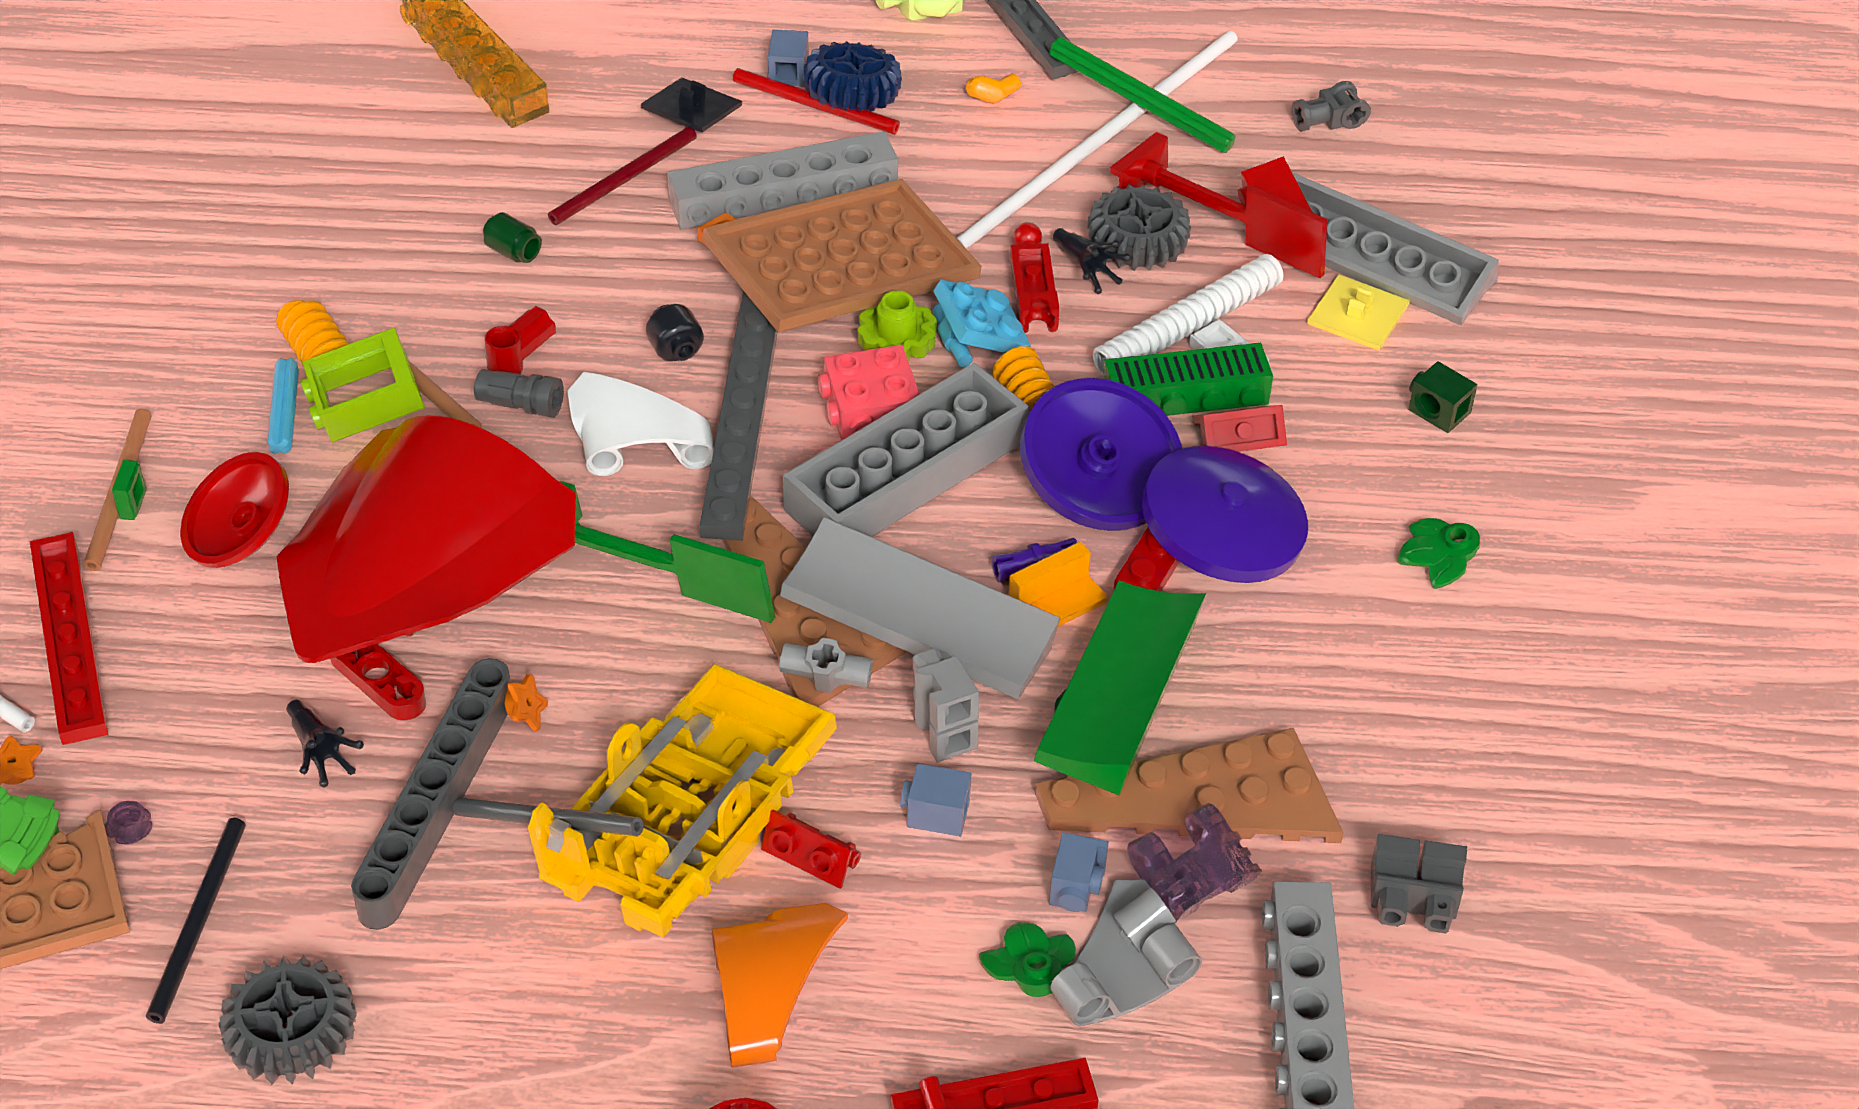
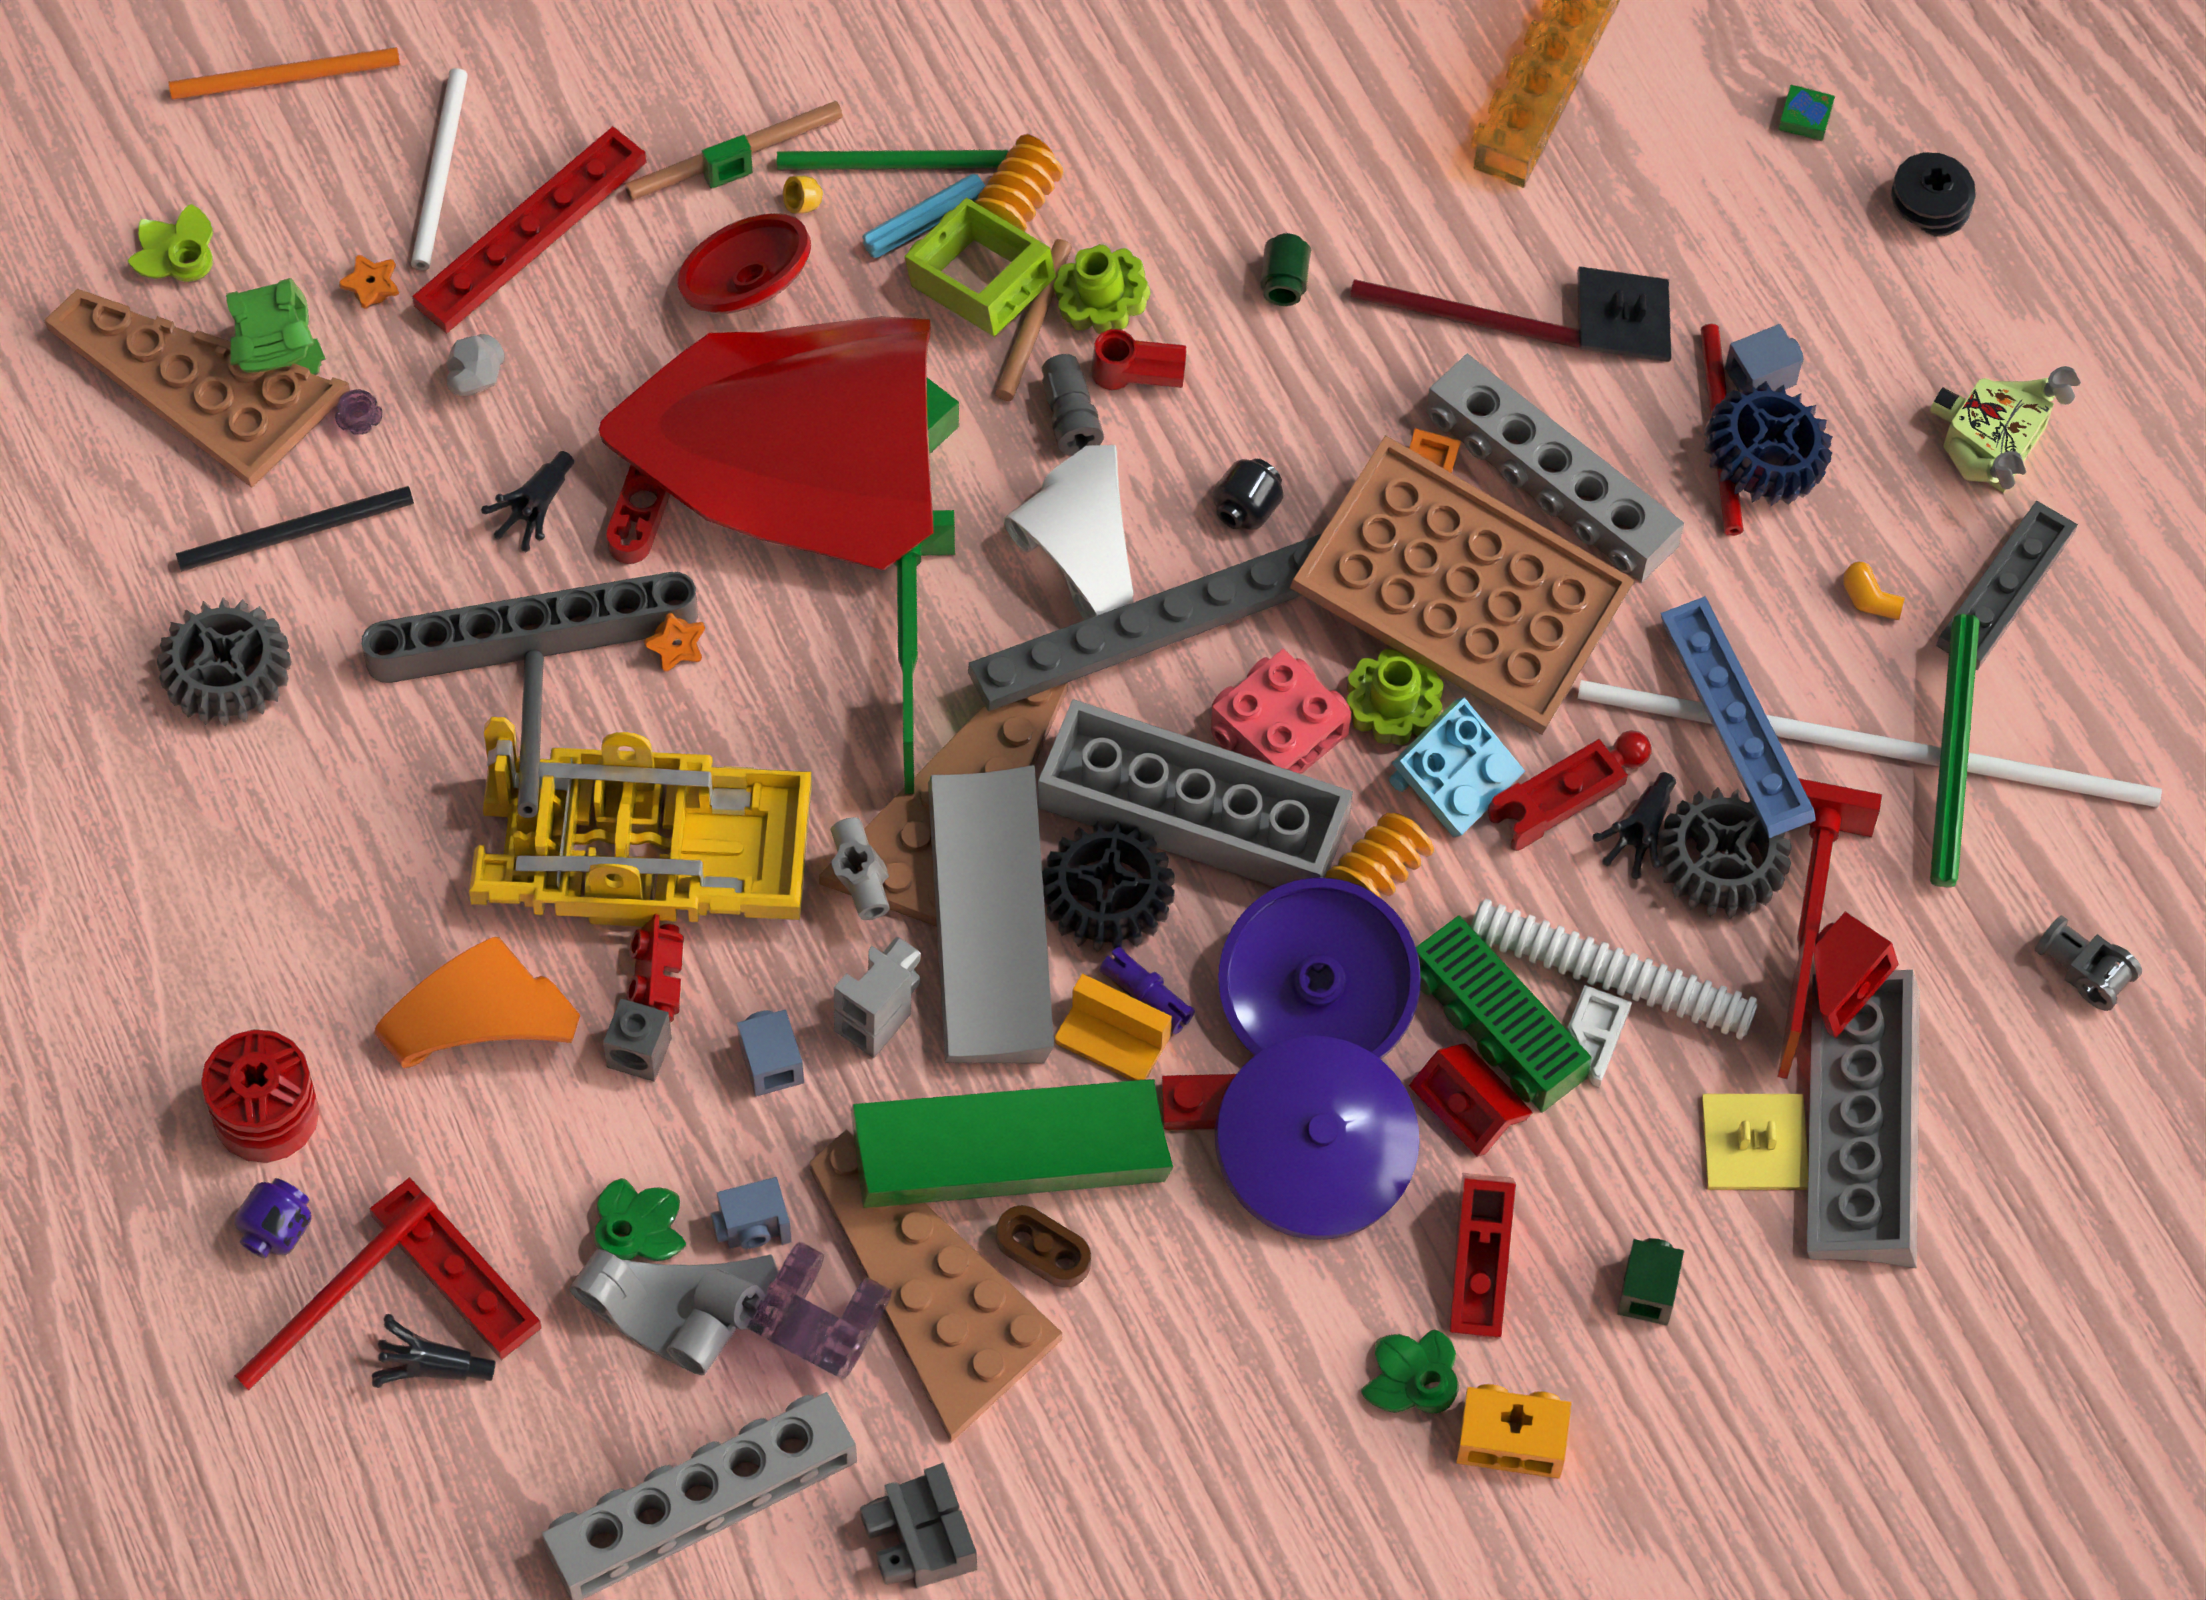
camera: 60 degrees right, 15 degrees up
(160, 722) = (474, 364): none -> light grey rock
(191, 464) = (802, 194): none -> yellow hinge
(215, 405) = (890, 159): none -> green piece
(439, 334) = (1102, 289): none -> lime plant
(870, 878) = (637, 1039): none -> dark grey brick
(937, 531) = (1071, 875): none -> black gear
(1049, 168) = (1738, 717): none -> medium blue plate
(1207, 708) = (1047, 1245): none -> reddish brown plate
(1365, 466) = (1482, 1254): none -> red slope
(1519, 512) = (1487, 1437): none -> light orange brick

